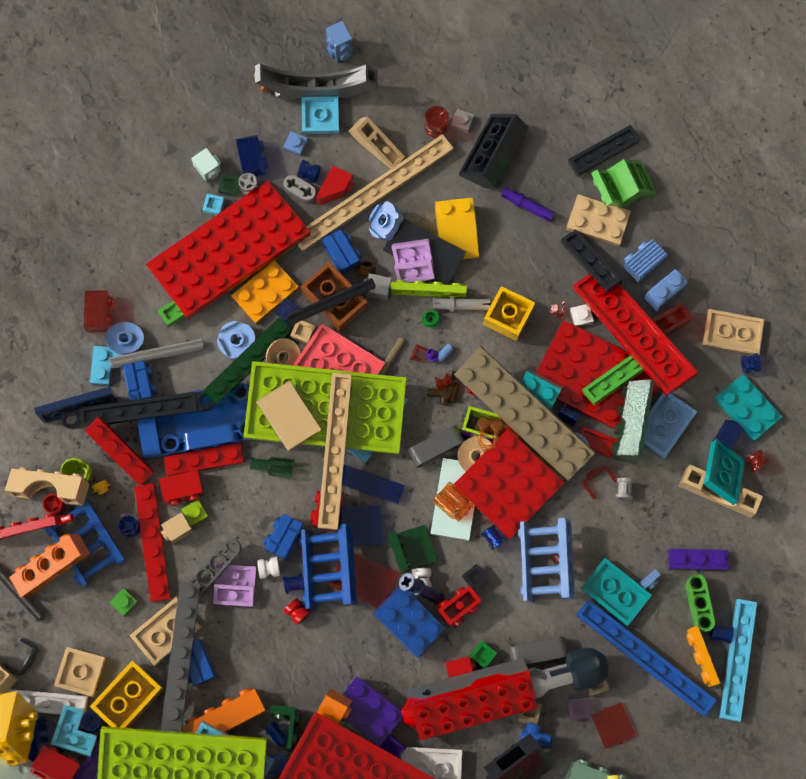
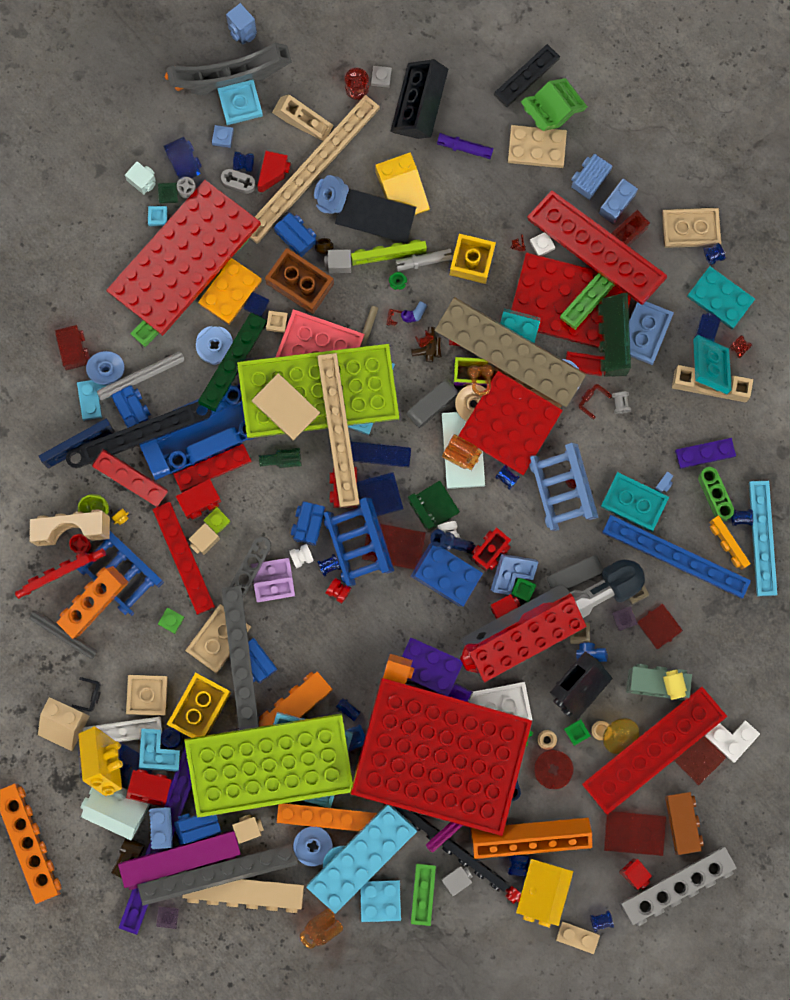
camera: 15 degrees left, 5 degrees up
(129, 526) = (155, 545): clear blue wheel -> none
(282, 713) = (349, 687): dark green bracket -> none
(286, 347) = (267, 342): tan dish -> none
(331, 301) = (298, 286): black axle -> none
(413, 260) = (367, 227): lavender slope -> none
(475, 577) = (499, 519): black plate -> none
(475, 629) = (510, 568): none -> medium blue plate
(569, 414) = (552, 343): clear blue bush -> none
(591, 261) = (540, 189): black plate -> none

